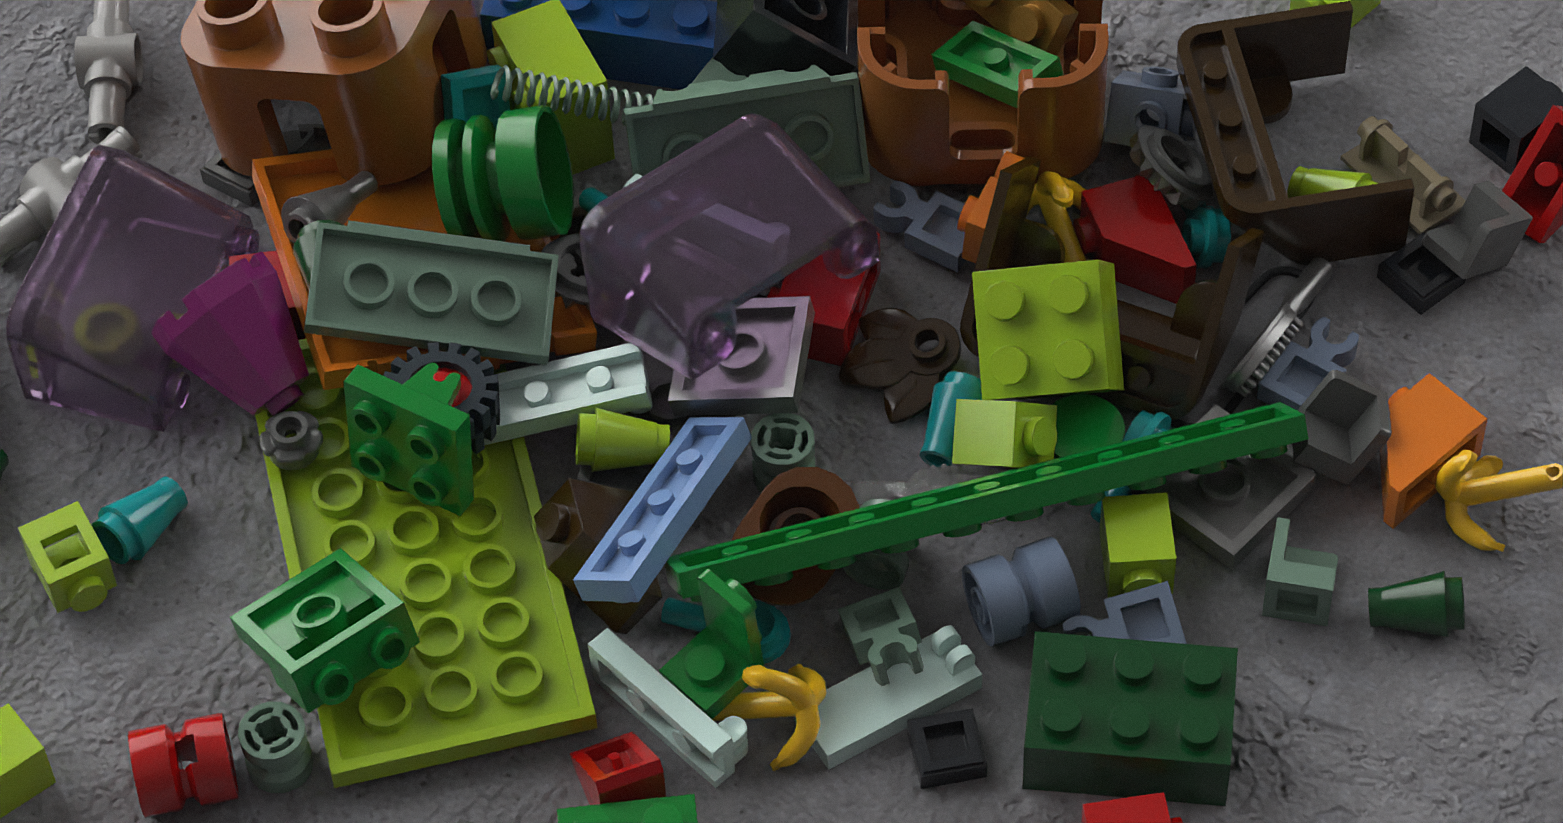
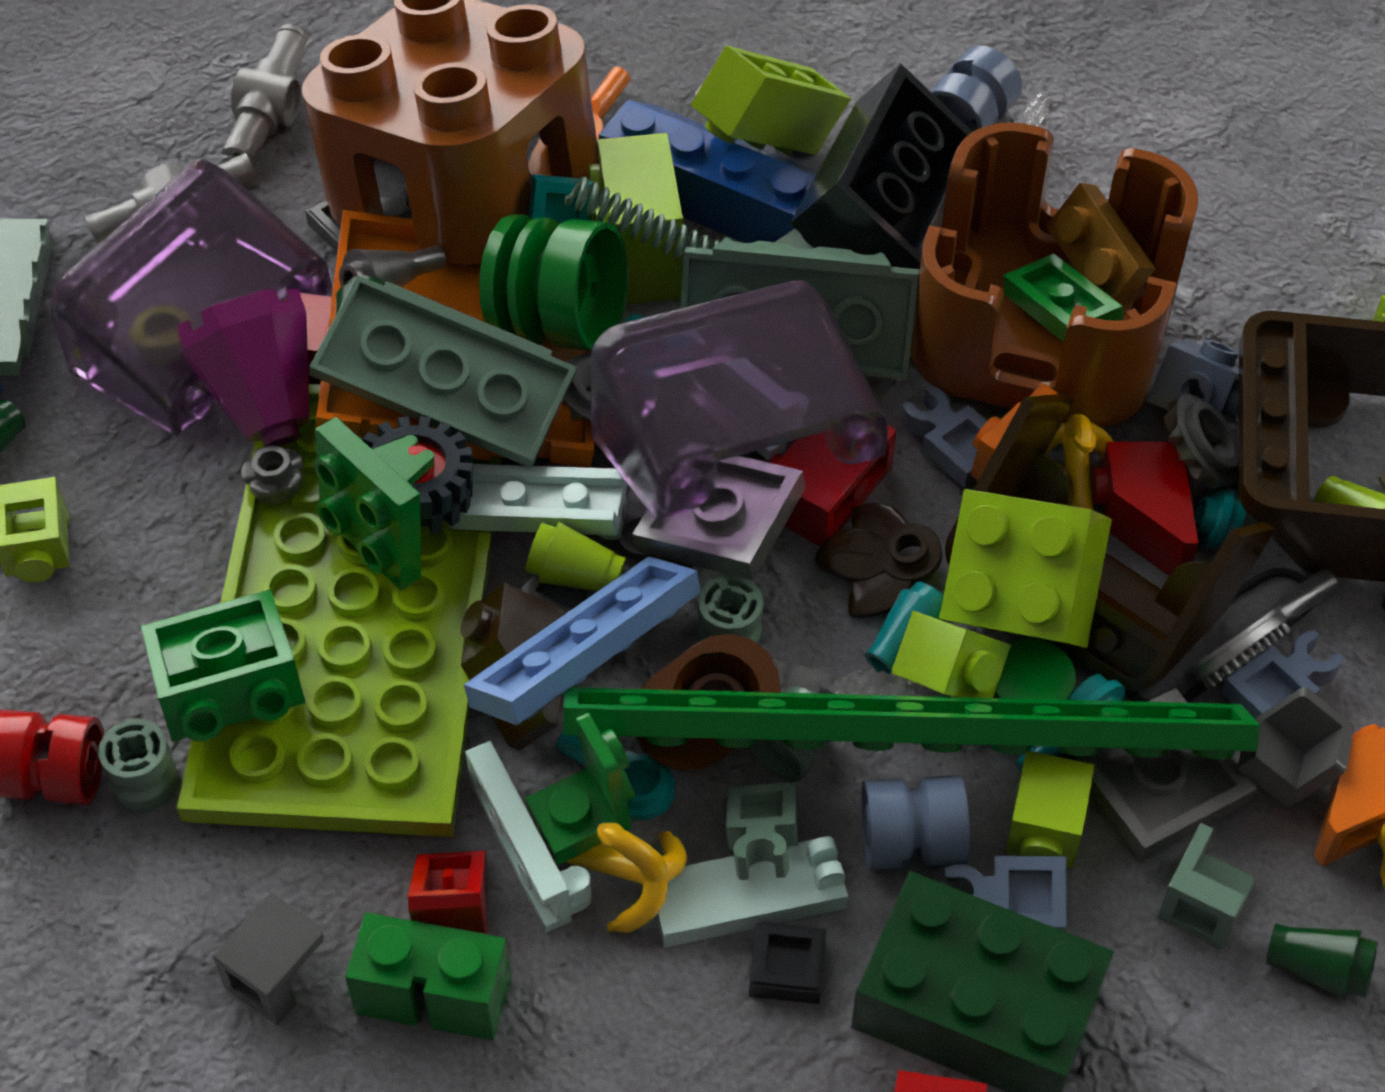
camera: 15 degrees right, 0 degrees up
(137, 521) = (109, 511): teal cone -> none

